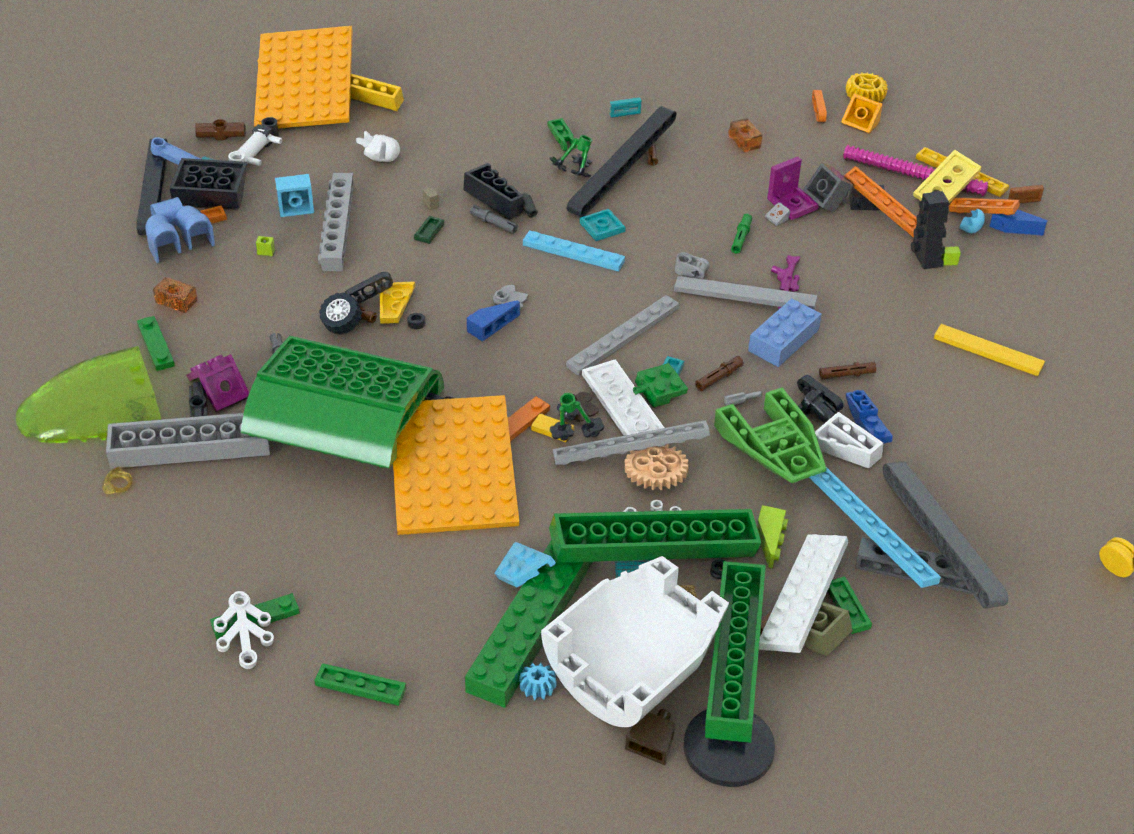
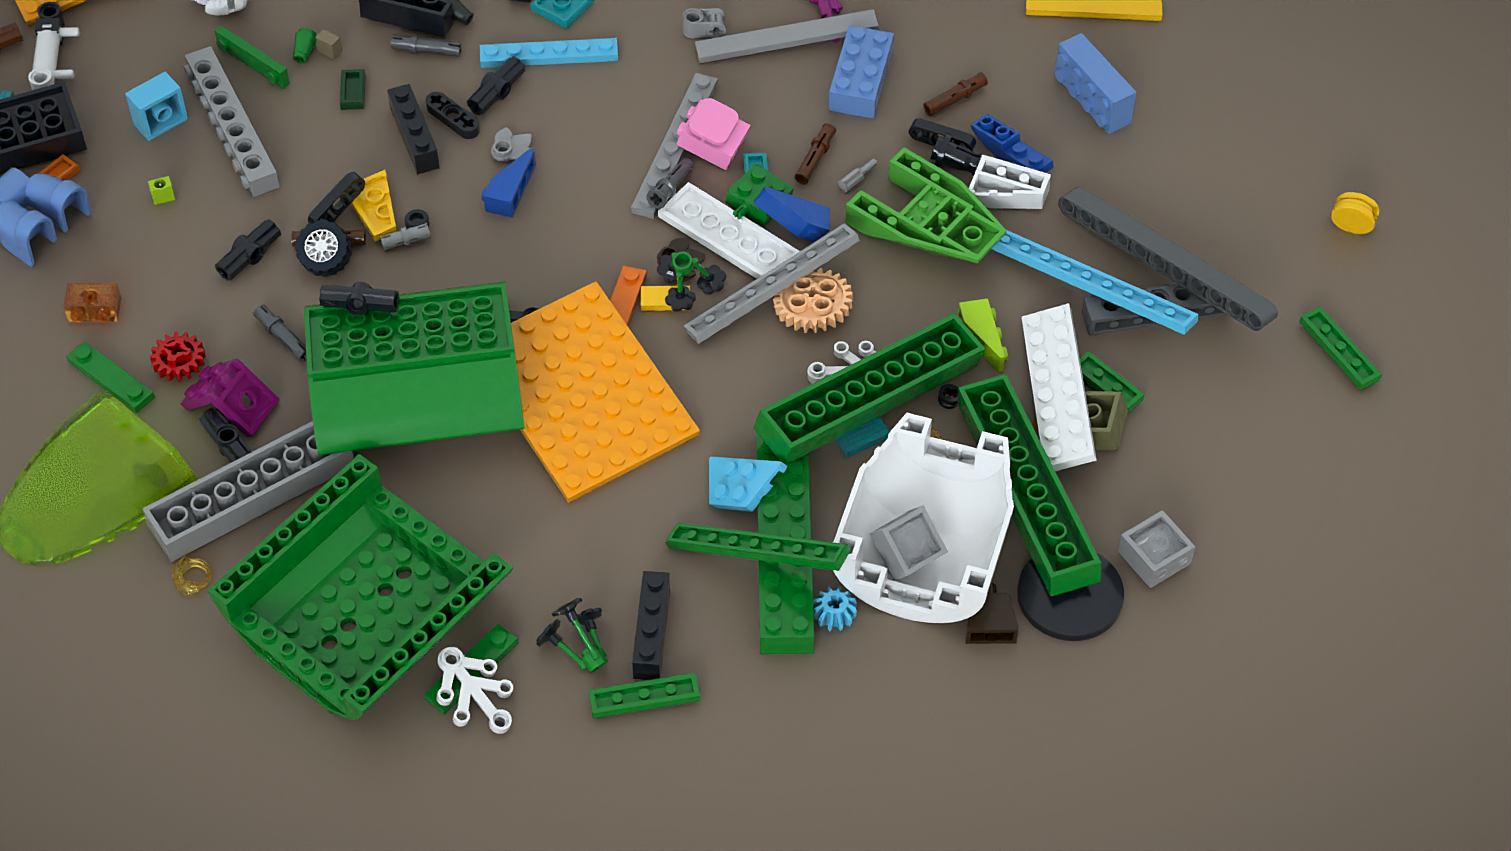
camera: 25 degrees left, 10 degrees up
(201, 511) = (329, 571): none -> green slope
(203, 345) = (177, 356): none -> red gear
(293, 298) = (247, 249): none -> black piece
(326, 340) = (359, 298): none -> black piece
(341, 642) = (594, 656): none -> plant
(376, 189) = (252, 57): none -> green plate
(396, 637) = (651, 625): none -> black brick
(401, 326) = (405, 236): none -> light grey pin
(414, 193) = (303, 44): none -> green cone
(449, 264) = (413, 129): none -> black brick
(482, 271) = (448, 106): none -> black beam
(501, 610) = (758, 546): none -> green tile
(523, 257) = (496, 85): none -> black piece
(596, 356) = (666, 187): none -> dark grey pin
(617, 653) = (908, 542): none -> piece
(651, 333) = (712, 132): none -> bright pink brick
(676, 404) = (796, 214): none -> blue slope
(814, 739) = (1156, 549): none -> light grey piece
(956, 396) = (1095, 83): none -> medium blue brick
(1055, 652) = (1340, 348): none -> green plate

